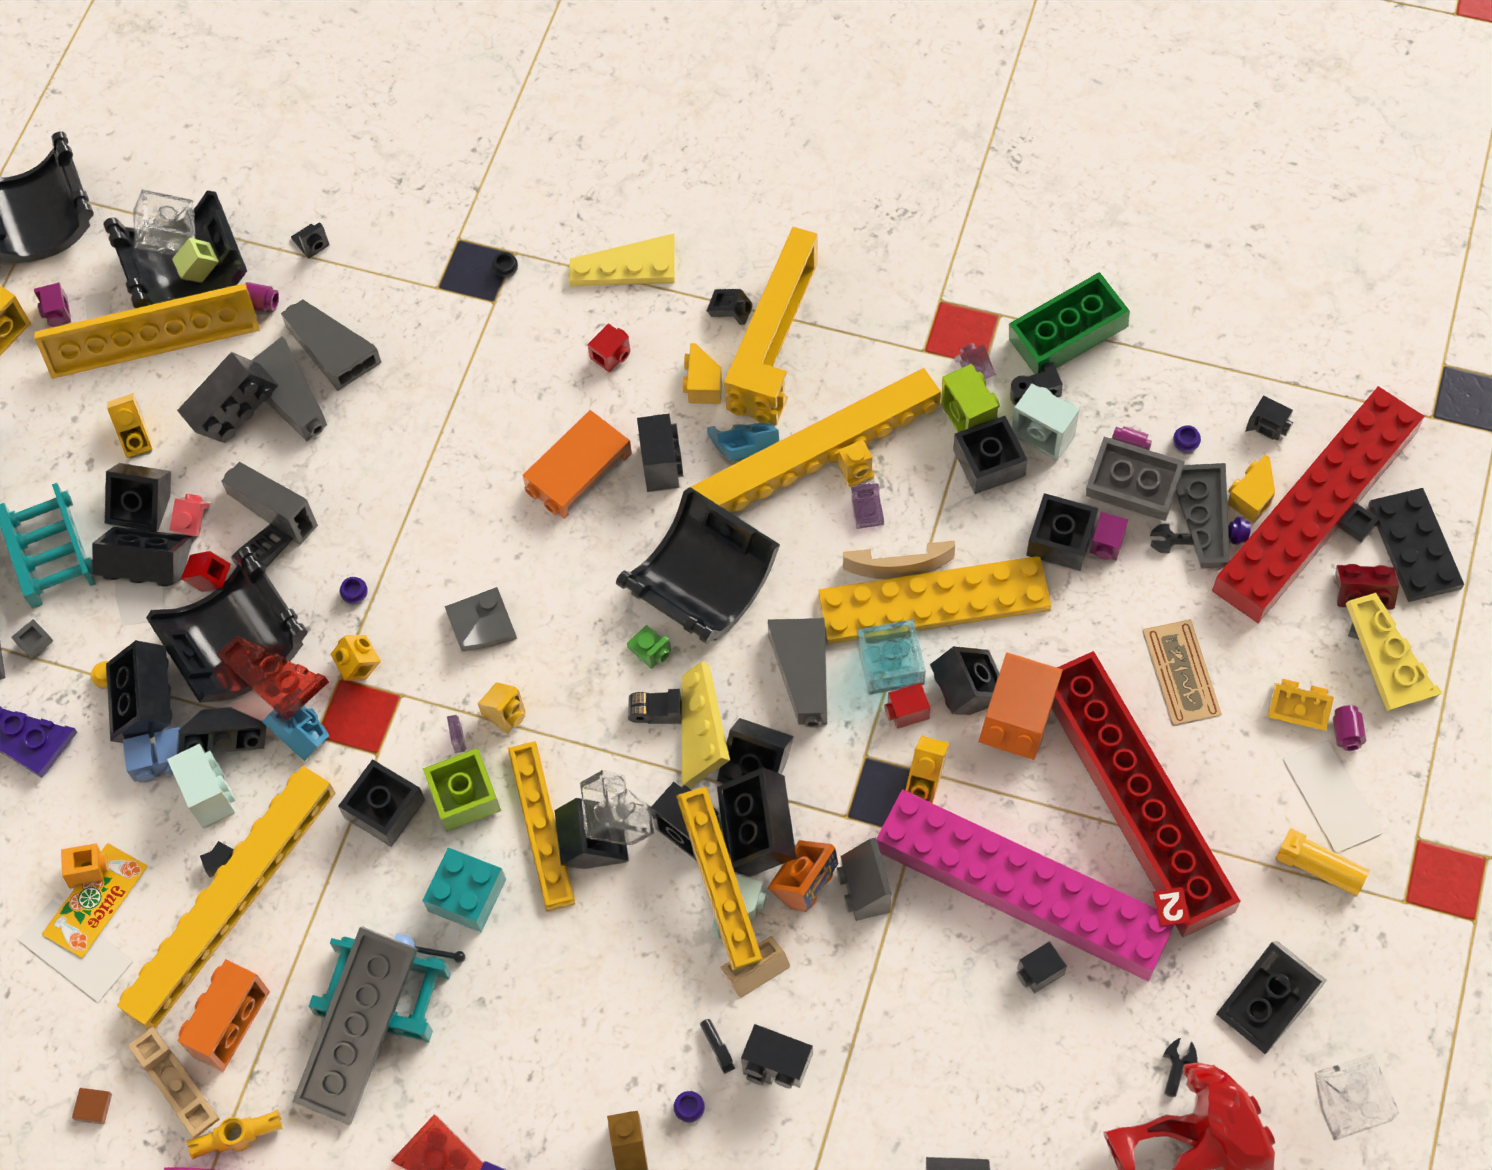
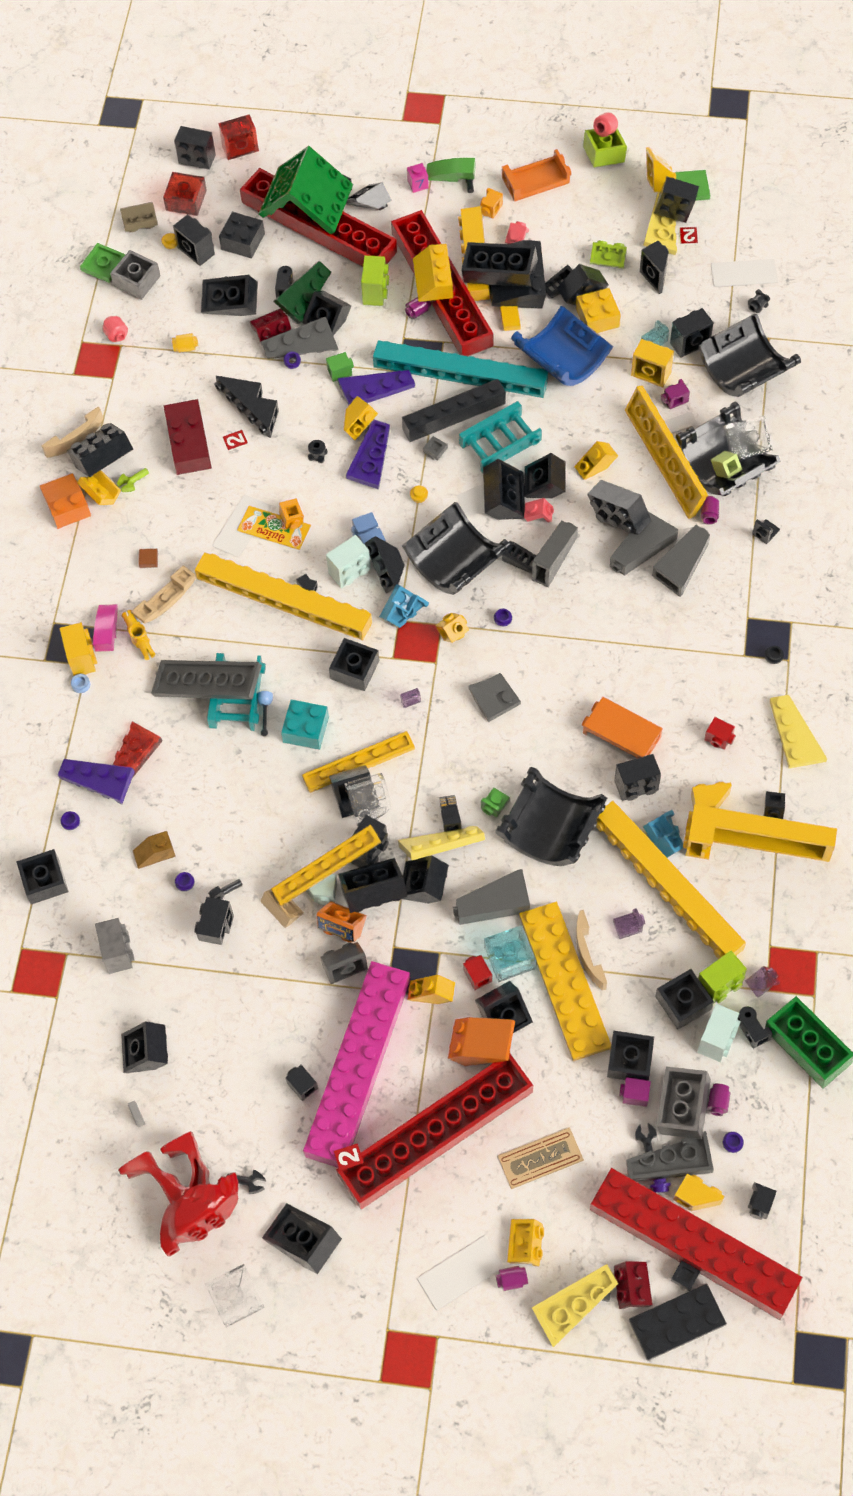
camera: 80 degrees right, 0 degrees up
(138, 691) = (404, 512): black brick -> none
(205, 571) = (496, 528): red brick -> none
(223, 1015) = (205, 609): orange brick -> none
(272, 677) = (427, 582): clear red wing -> none
(461, 789) = (370, 708): lime brick -> none
(503, 706) = (432, 720): yellow slope -> none
(855, 463) = (660, 910): yellow brick -> none
(1322, 863) = (403, 1266): yellow piece -> none

